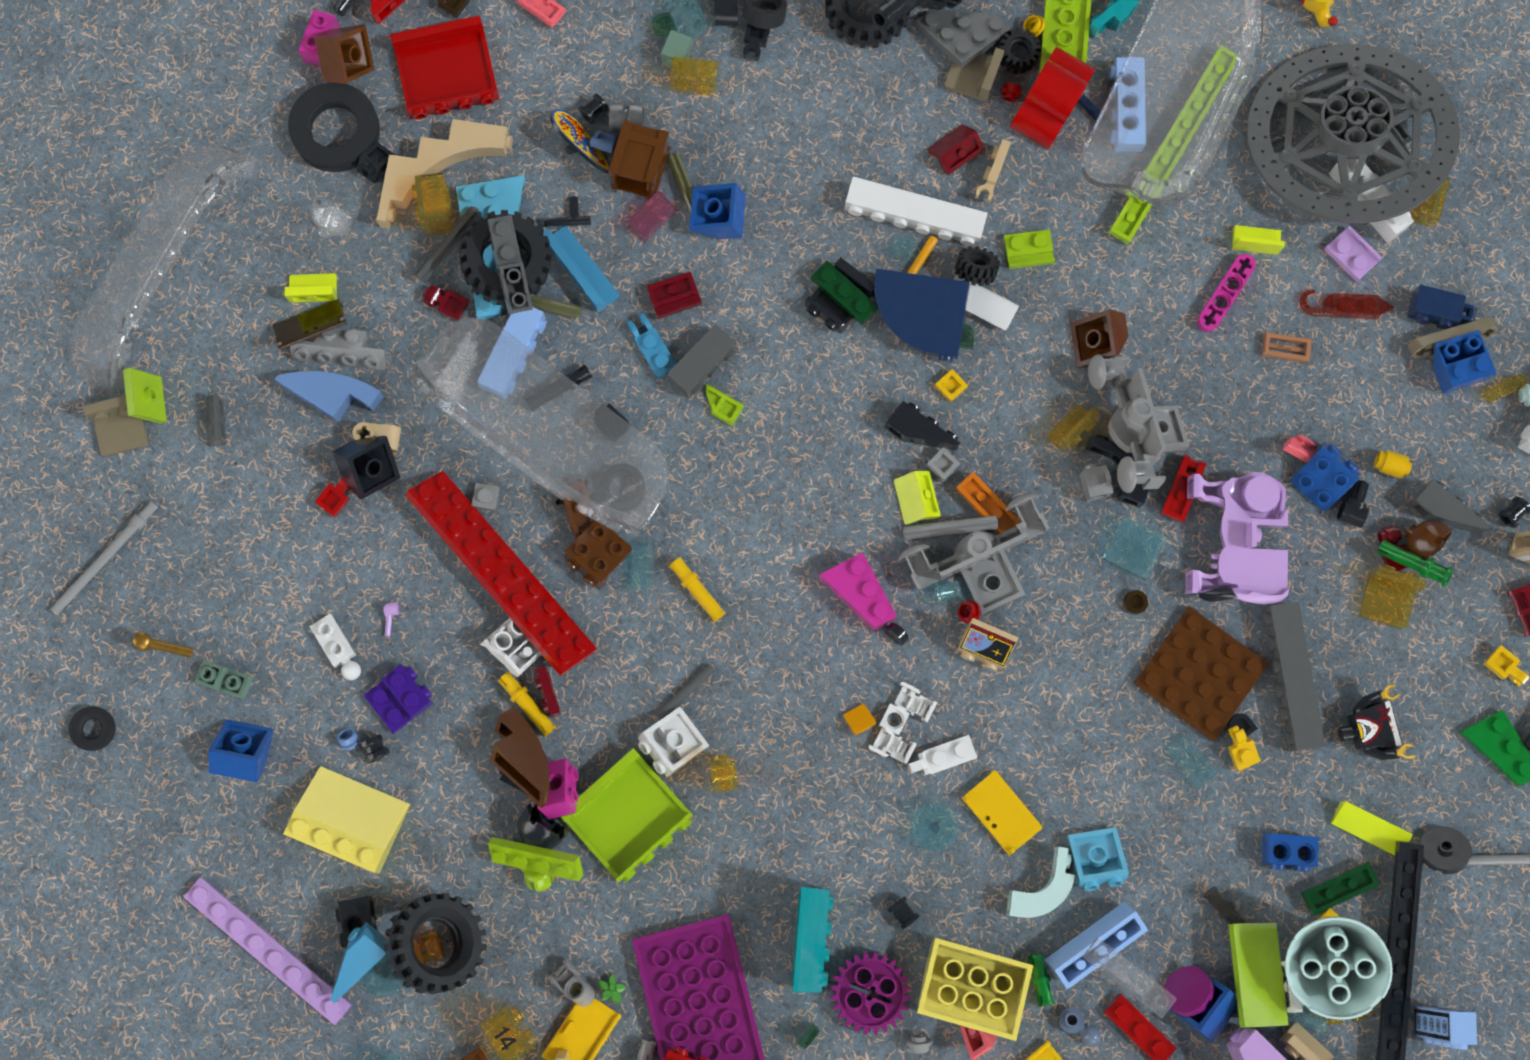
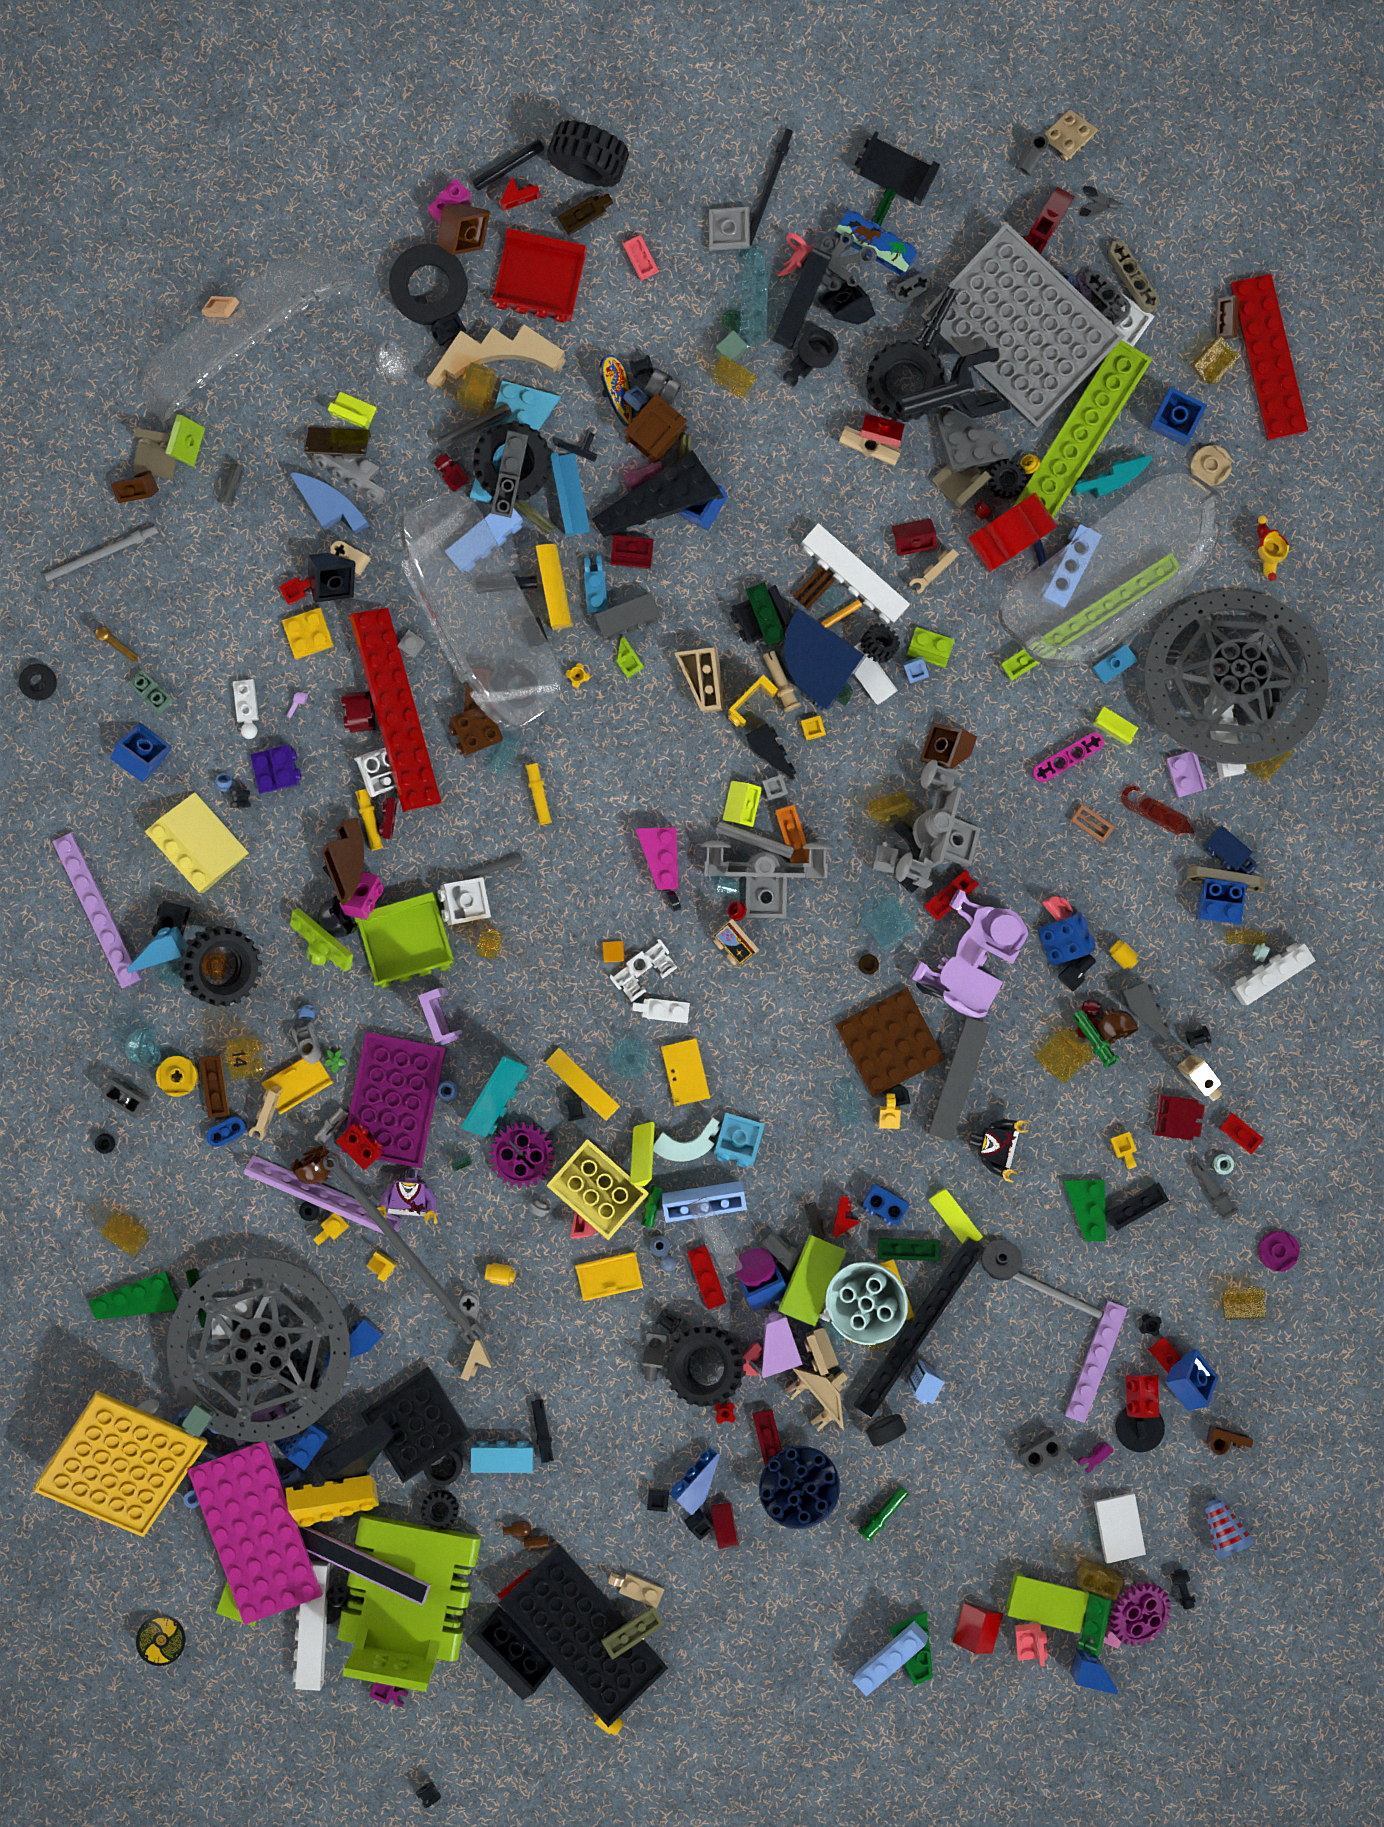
camera: 30 degrees right, 10 degrees up
(111, 470) = (138, 487): none -> reddish brown plate
(122, 244) = (220, 306): none -> light nougat tile
(368, 537) = (308, 633): none -> yellow plate
(462, 594) = (358, 711): none -> dark red cylinder
(555, 950) = (306, 1012): none -> medium blue plate
(609, 366) = (554, 586): none -> yellow brick
(676, 440) = (578, 669): none -> yellow plate
(679, 221) = (665, 494): none -> black wing
(686, 864) = (435, 1016): none -> lavender panel
(752, 953) = (442, 1095): none -> medium blue plate
(811, 384) = (704, 677): none -> tan wedge
(851, 80) = (882, 452): none -> tan piece
(870, 58) = (882, 430): none -> red plate
(881, 363) = (762, 683): none -> yellow panel
(885, 227) = (825, 575): none -> reddish brown tile
(898, 880) = (582, 1084): none -> yellow slope
(902, 360) = (785, 690): none -> tan pin
(1003, 925) = (642, 1154): none -> neon yellow slope
(1027, 276) = (916, 669): none -> medium blue plate
(1214, 961) = (785, 1255): none -> dark grey piece
(1222, 180) = (1114, 664): none -> dark azure plate
(1253, 894) = (842, 1222): none -> red slope

